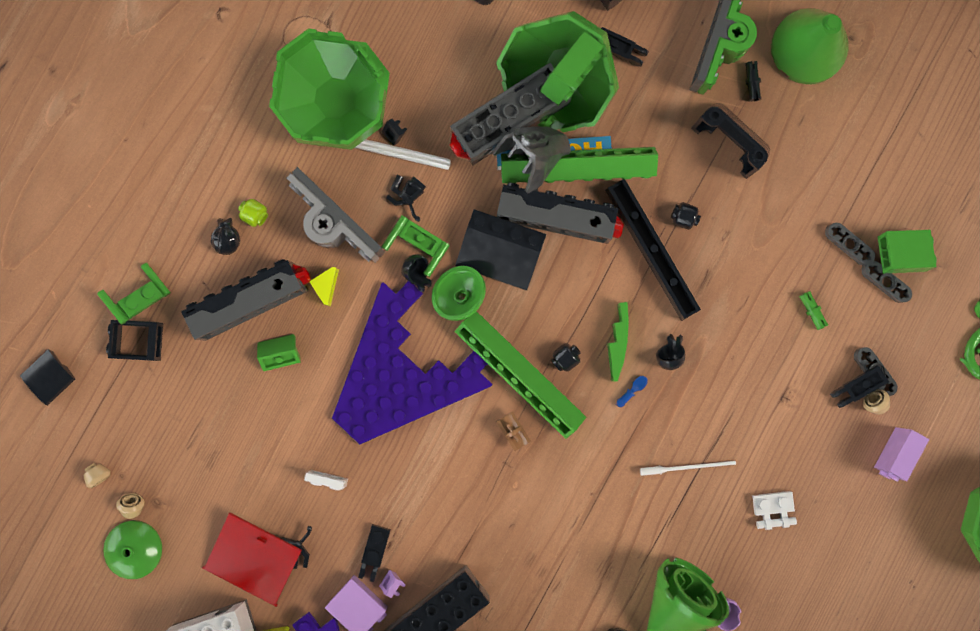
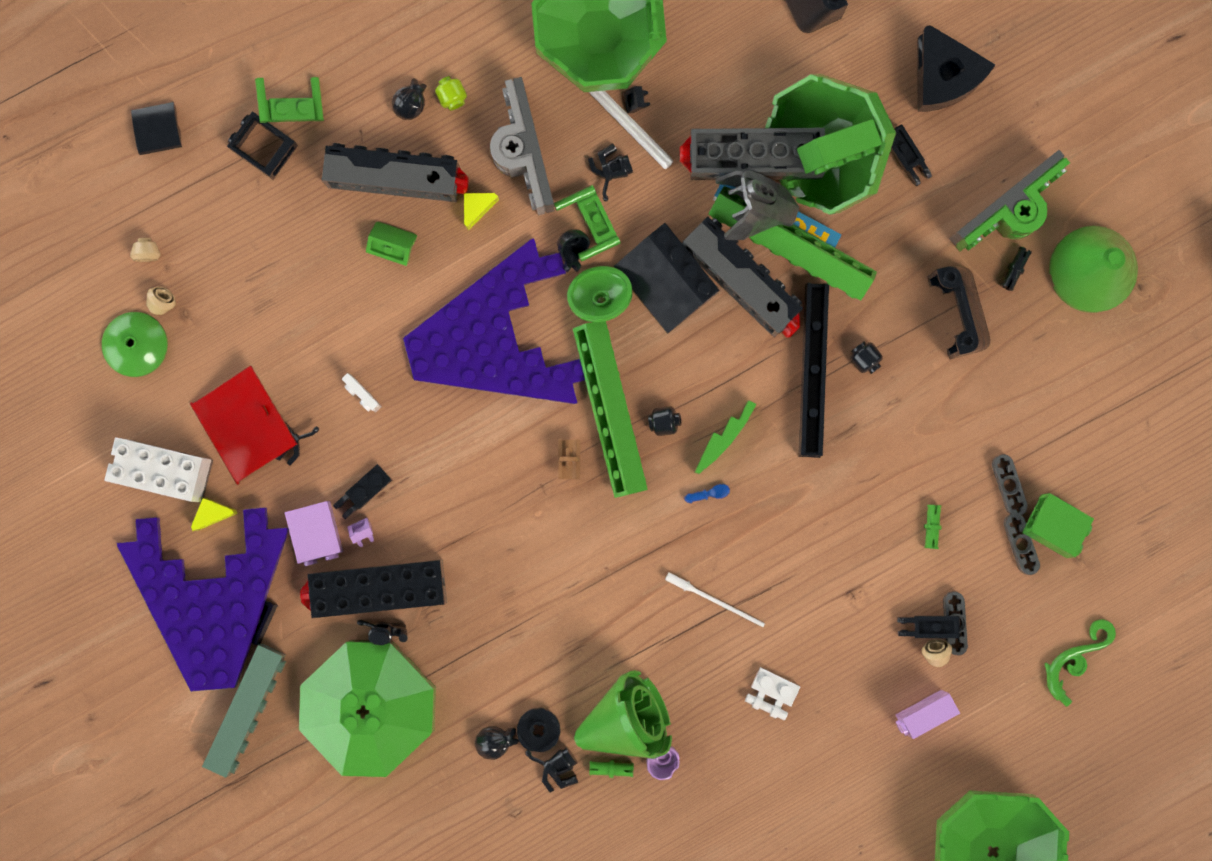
camera: 25 degrees right, 0 degrees up
(672, 354) = (768, 482): black piece -> none

